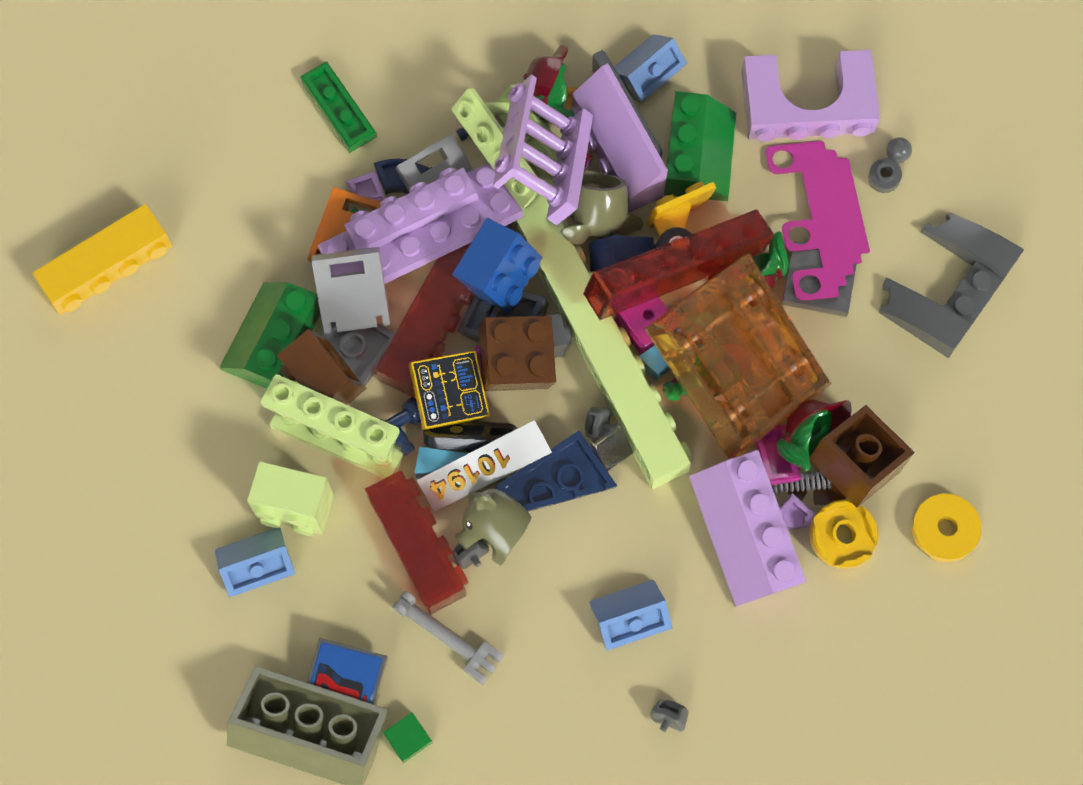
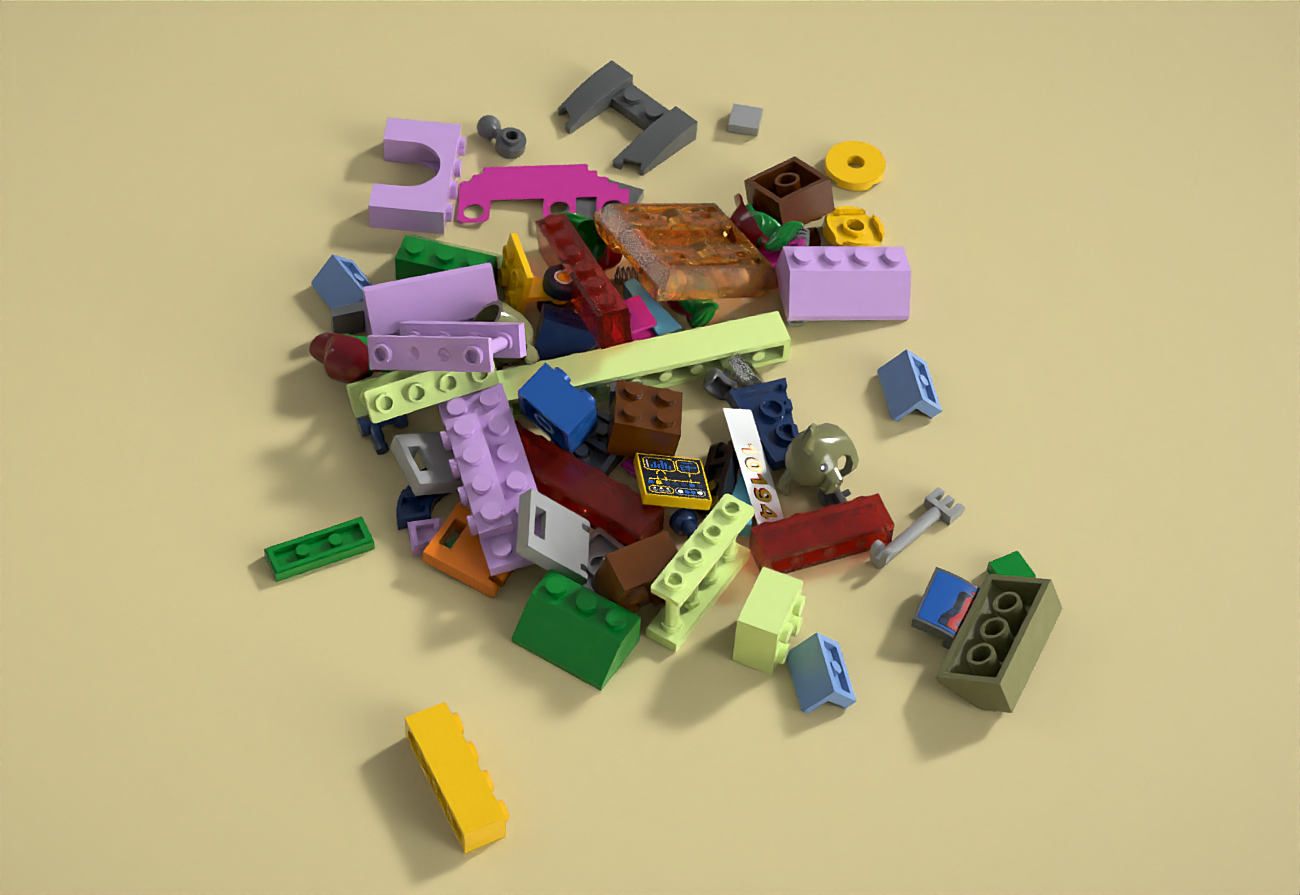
camera: 85 degrees left, 20 degrees down
(669, 715) = (1006, 374): dark grey piece -> none
(986, 403) = (745, 119): none -> light grey tile

